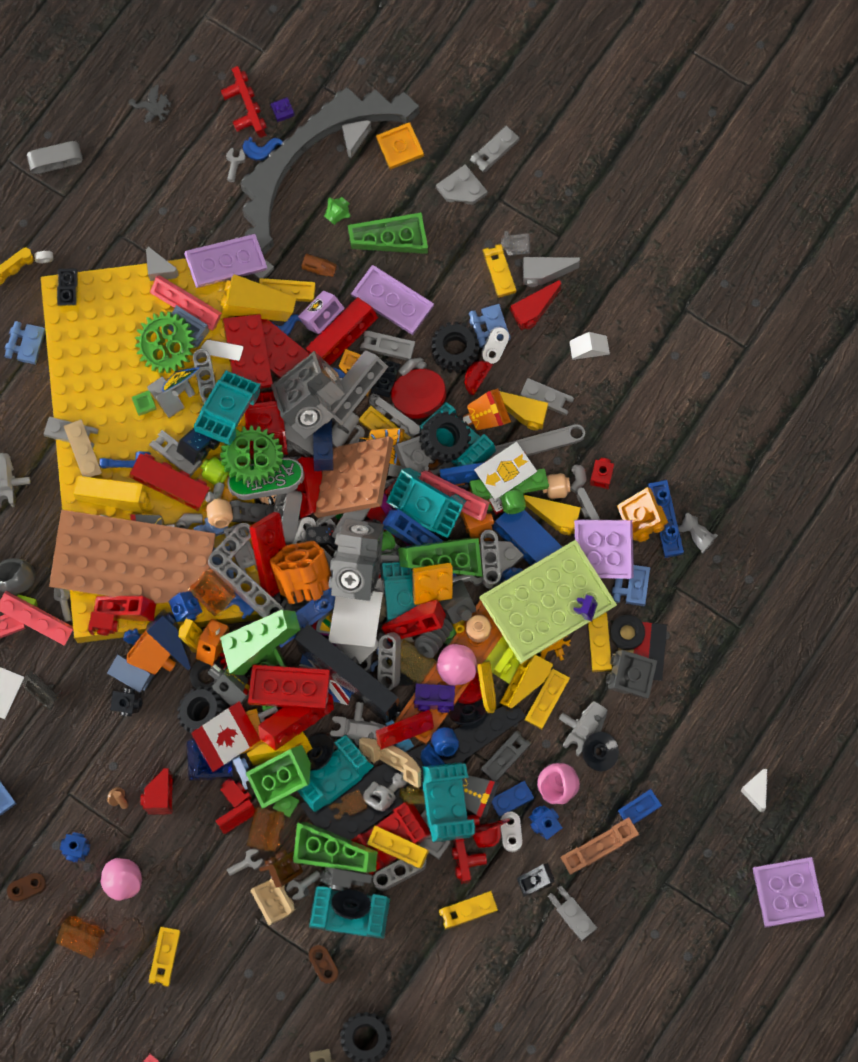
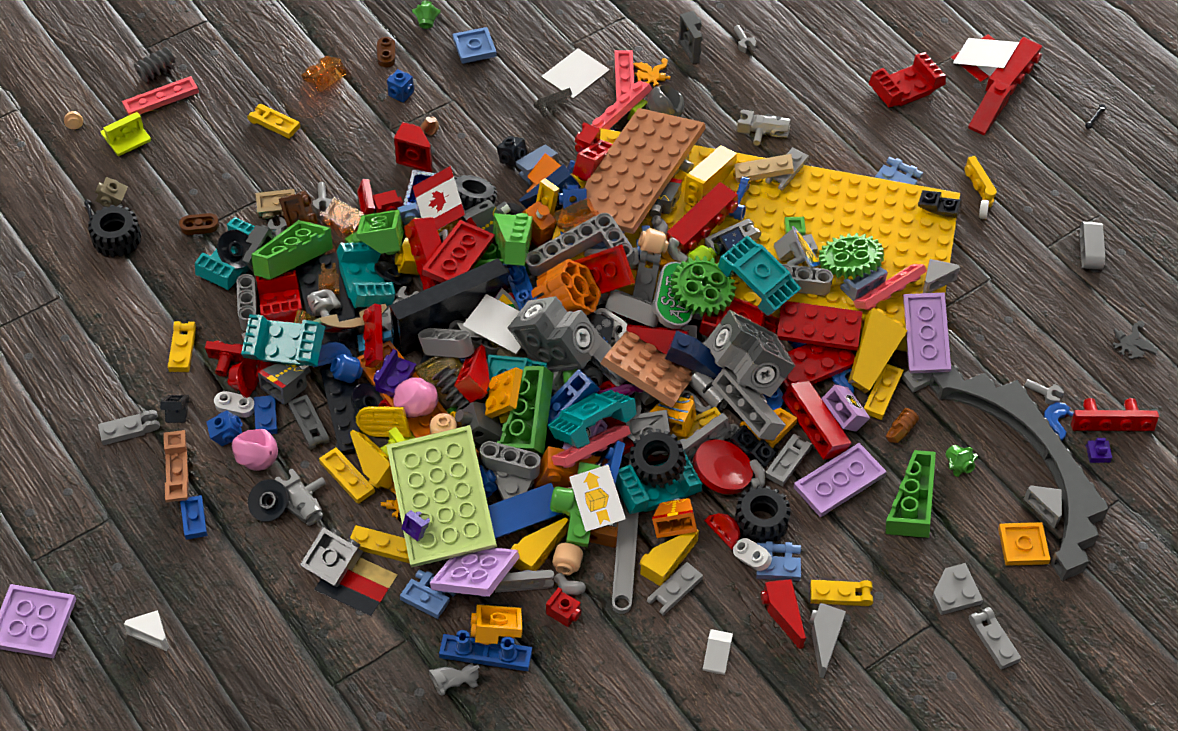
camera: 105 degrees right, 20 degrees down
(121, 879) = (354, 106): bright pink piece -> none
(223, 349) = (828, 300): white sticker -> none
(398, 847) = (269, 294): yellow plate -> none
(516, 244) = (868, 615): clear bracket -> none
(623, 643) = (373, 560): black tyre -> none

